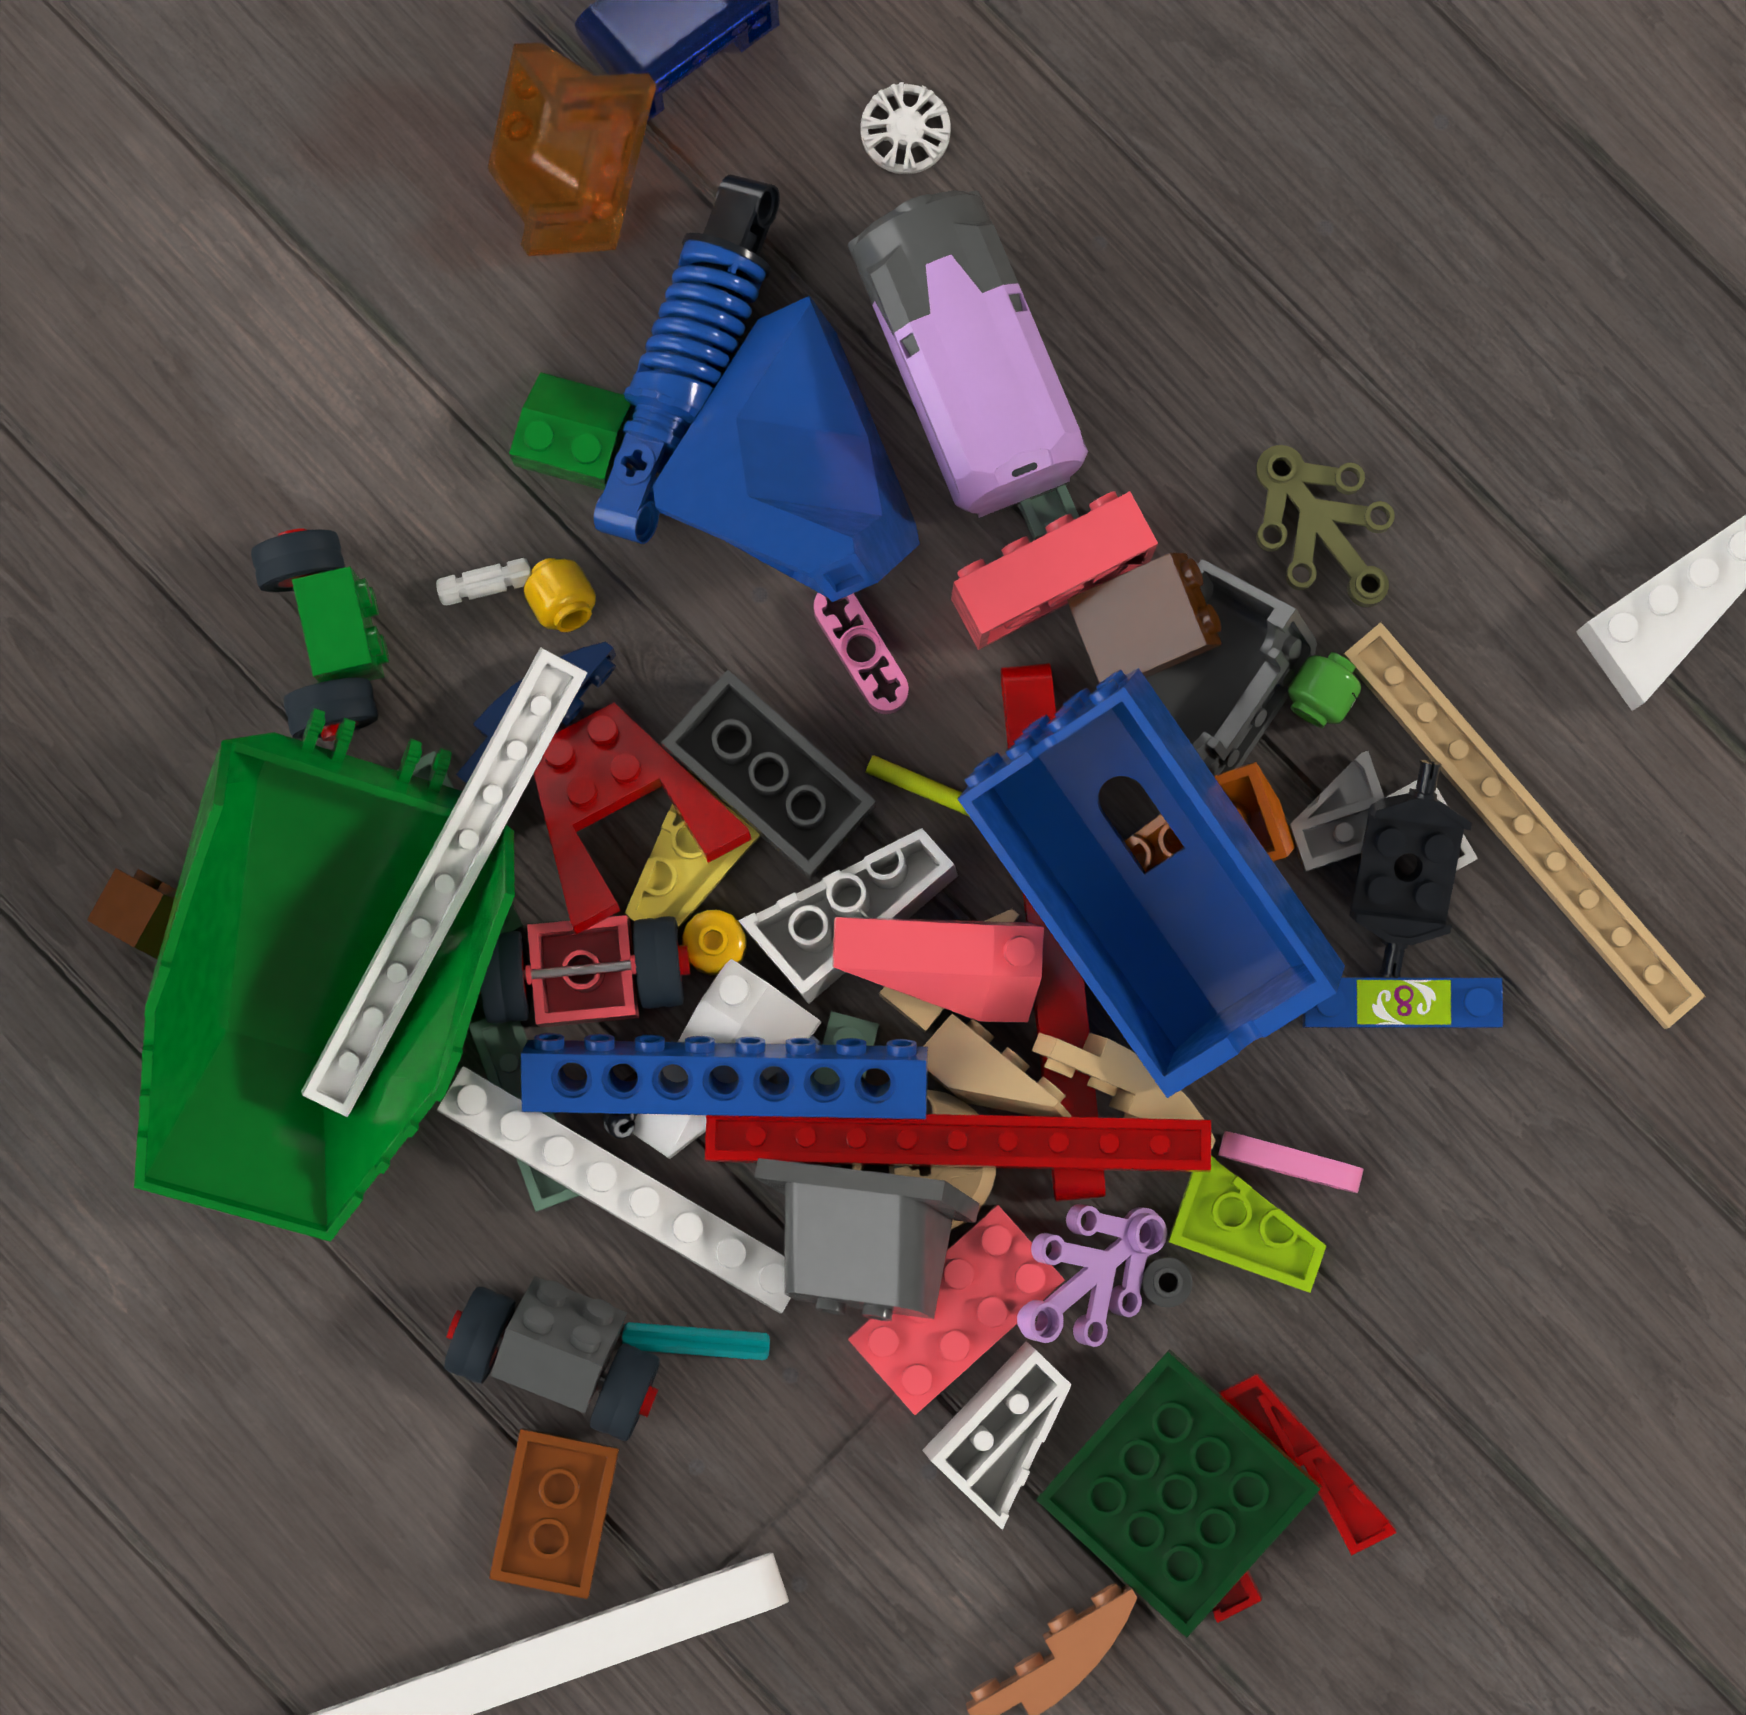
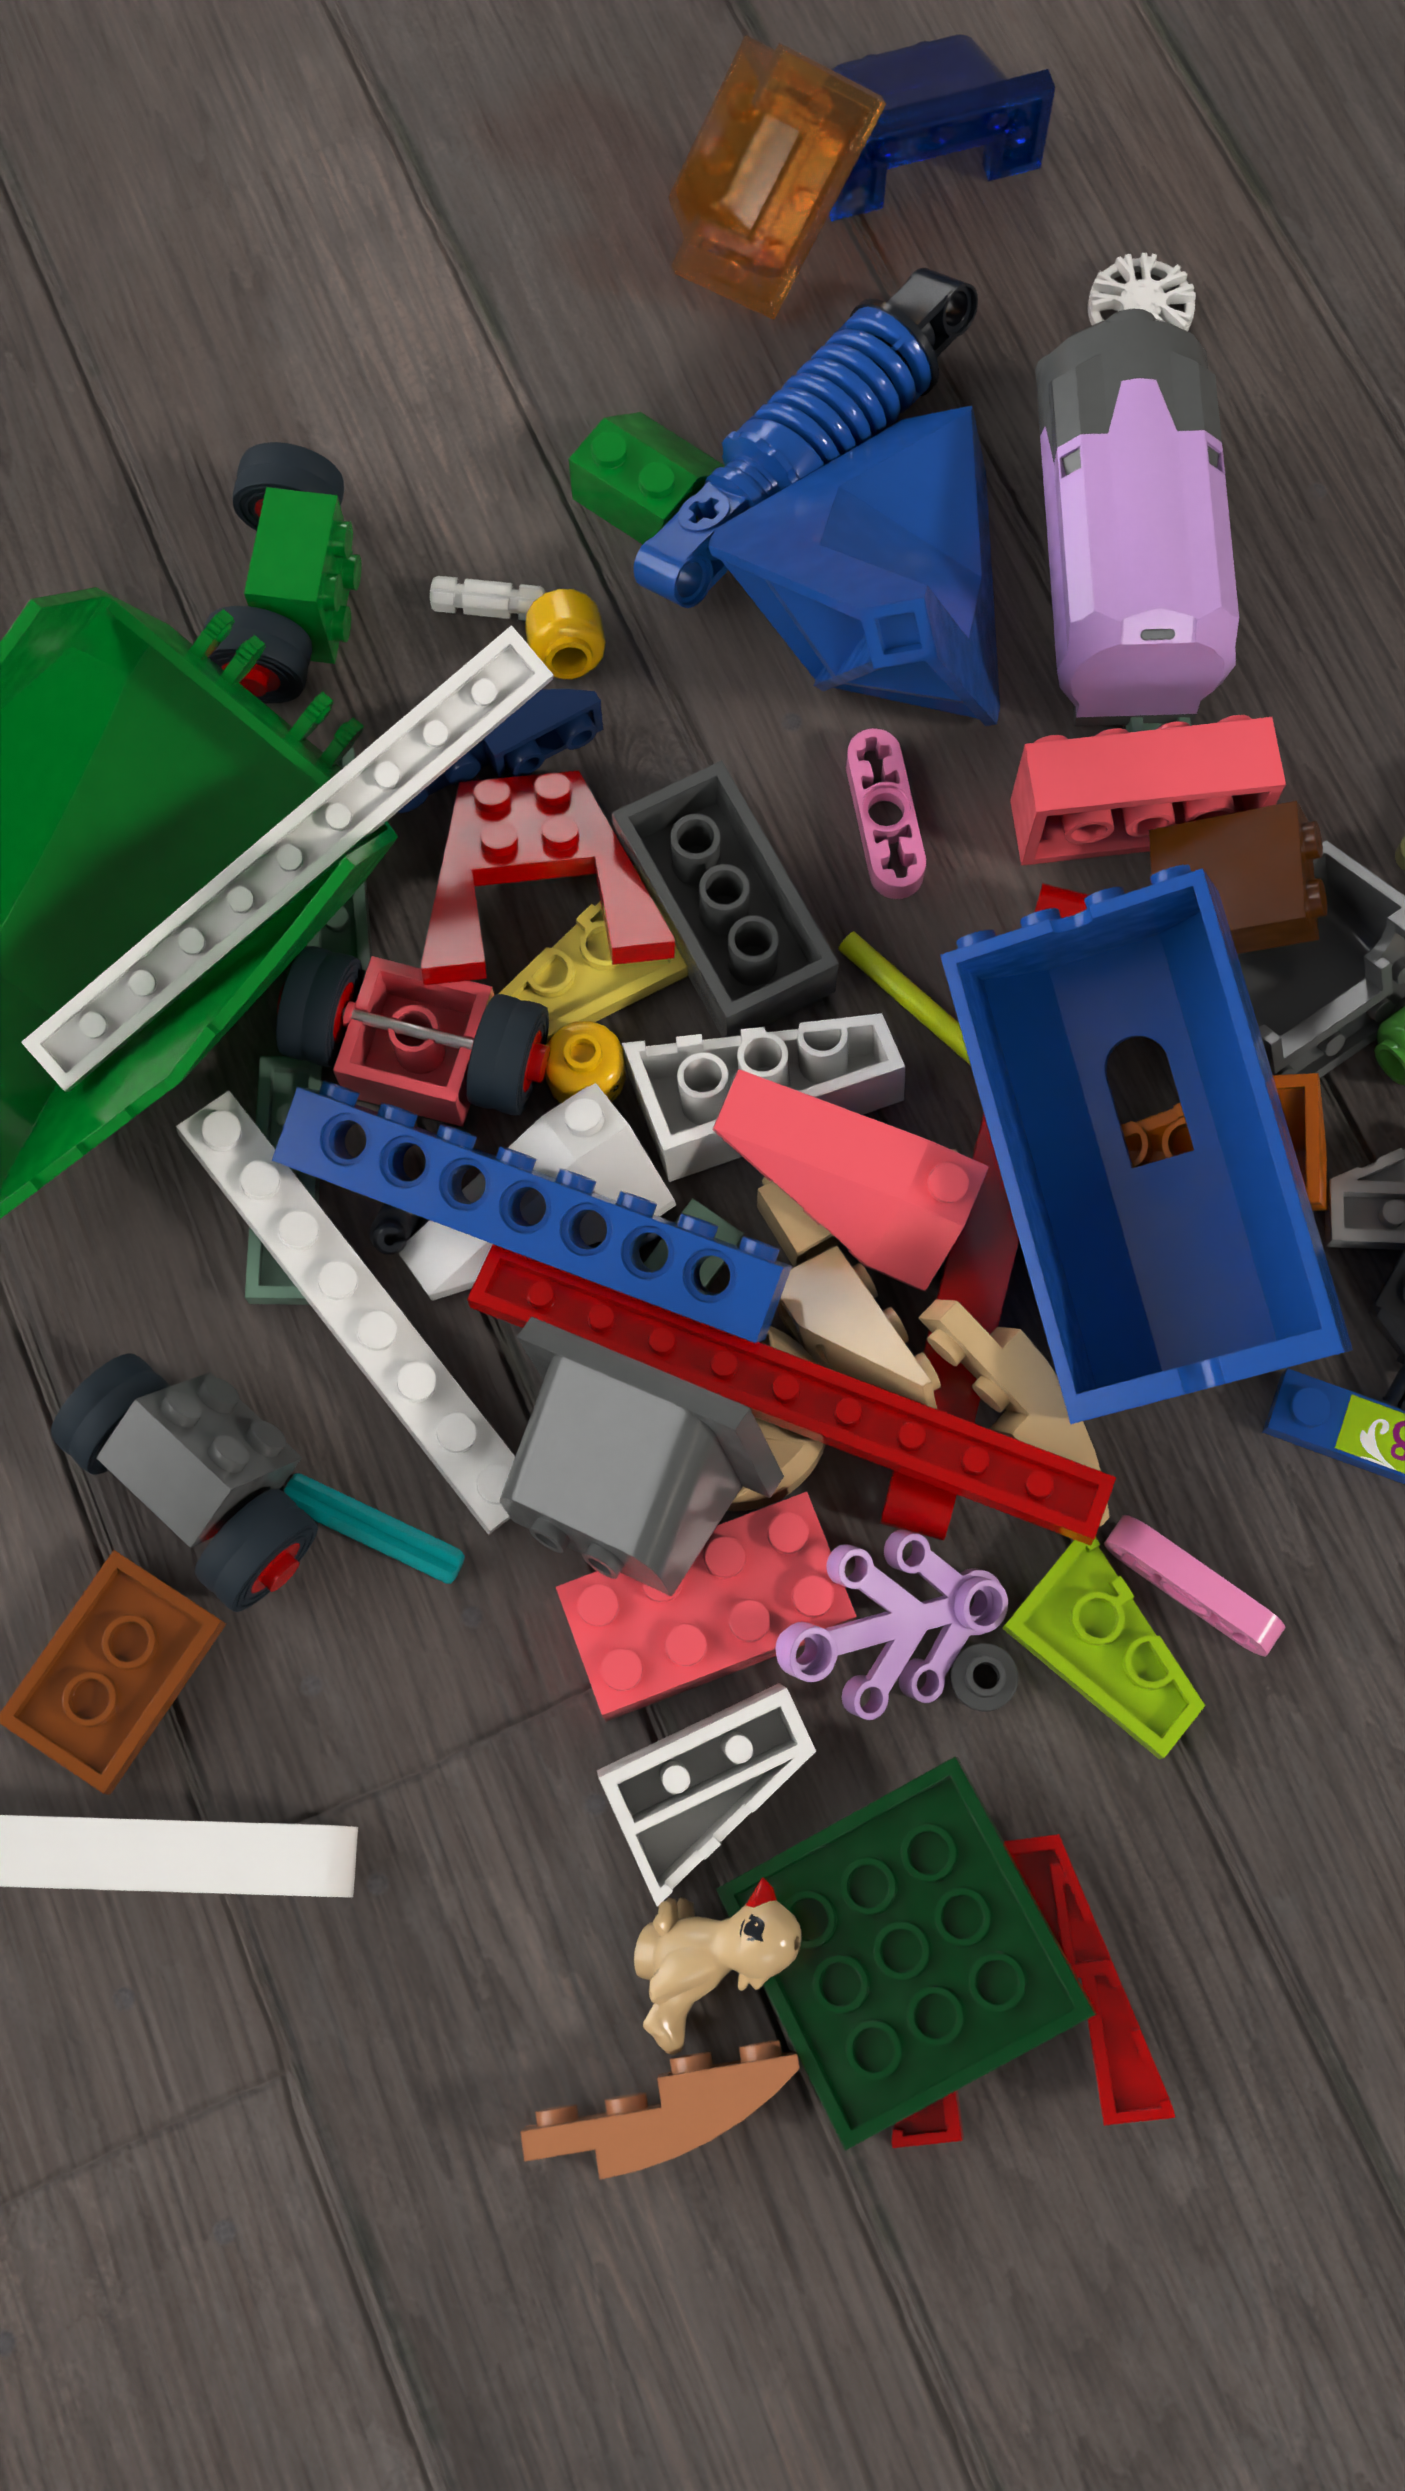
camera: 25 degrees right, 10 degrees down
(1037, 1549) = (693, 1954): none -> tan animal

